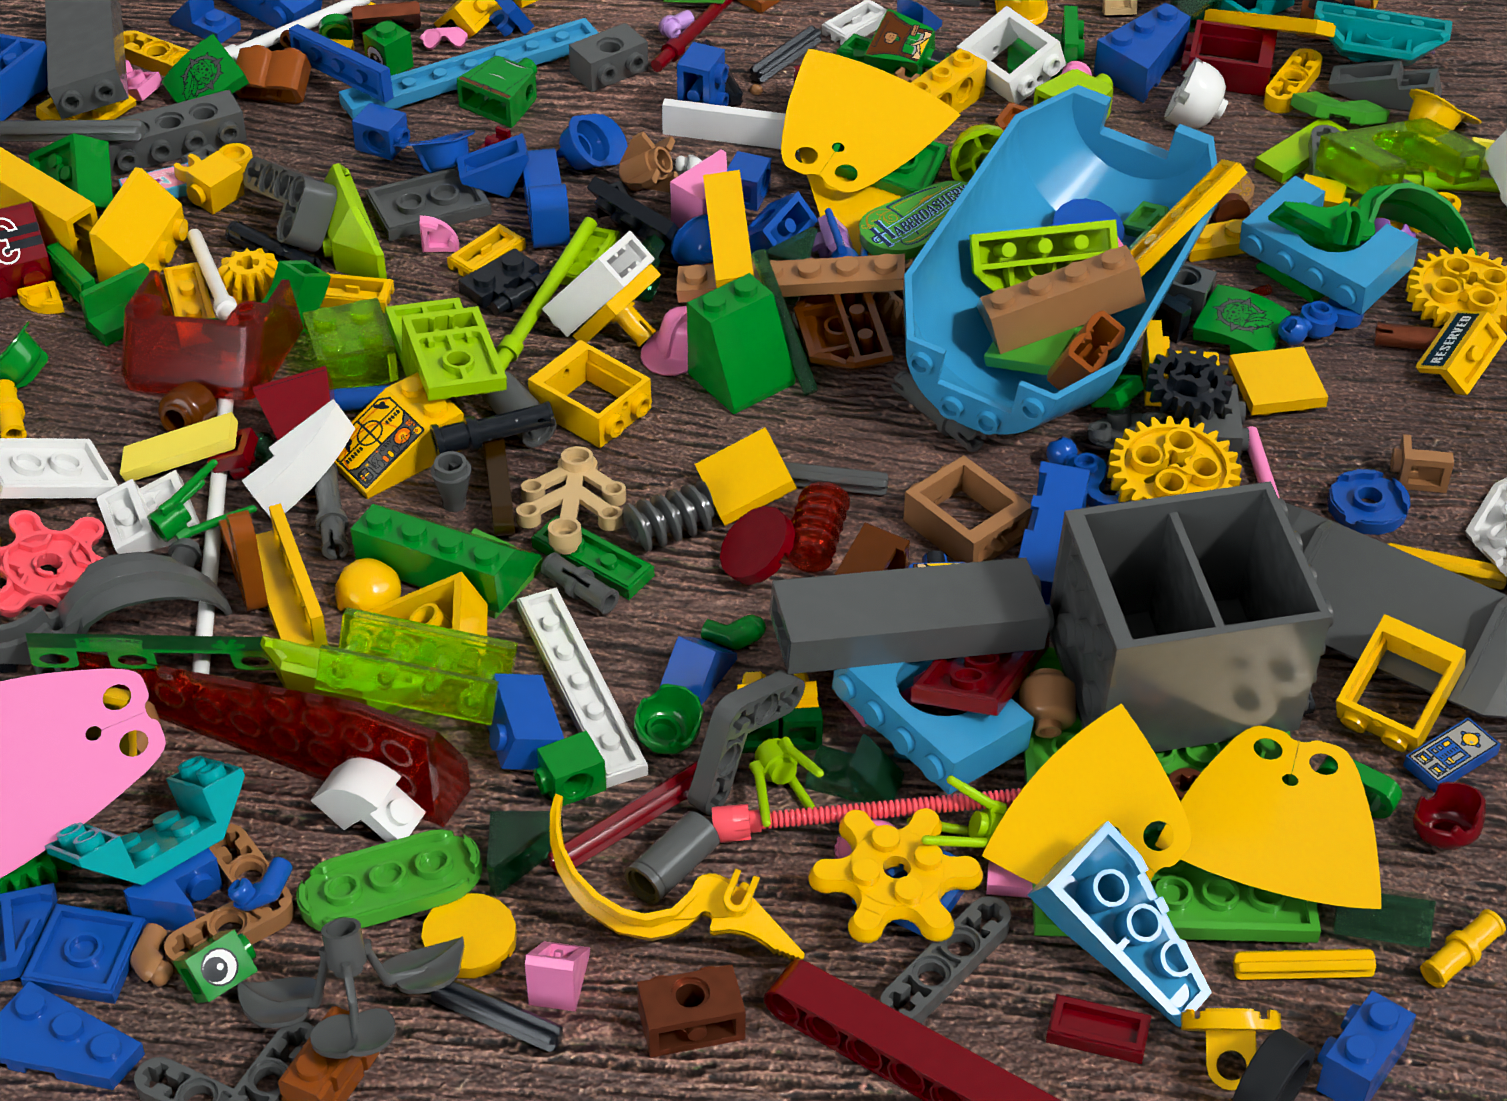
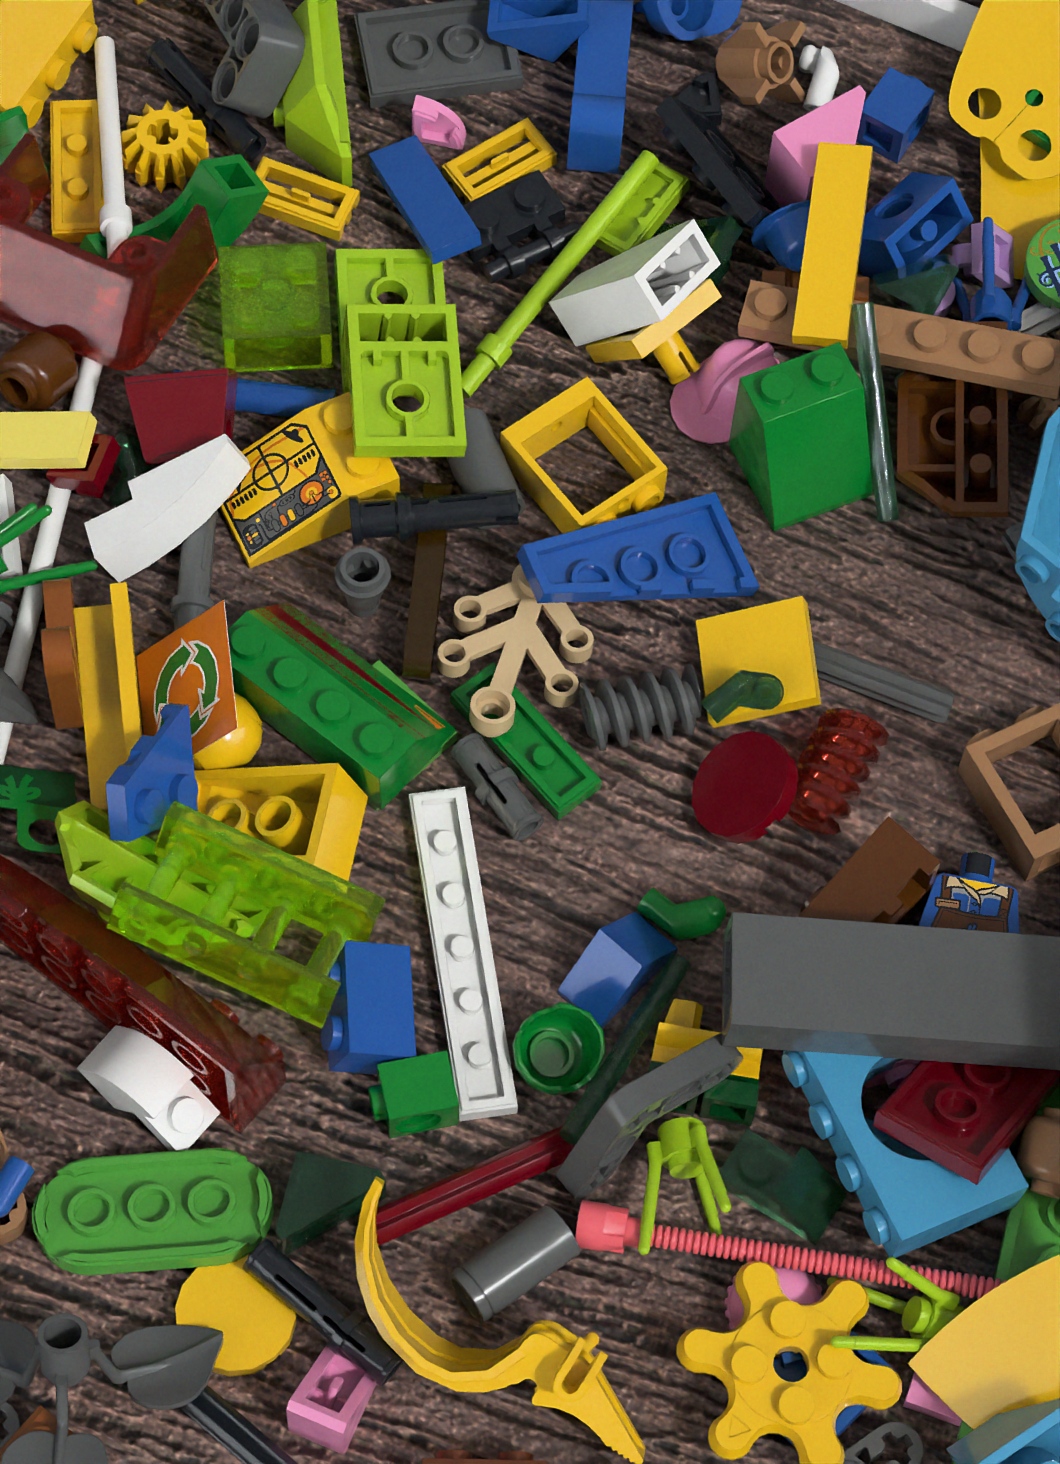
camera: 10 degrees right, 20 degrees up
(324, 603) = (153, 777): none -> blue wing
(342, 558) = (194, 671): none -> orange sticker
(440, 273) = (425, 199): none -> blue tile
(494, 894) = (324, 1312): none -> black pin
(648, 432) = (644, 556): none -> blue wing
(729, 684) = (625, 1048): none -> clear green bar
(741, 487) = (745, 690): none -> clear green arm

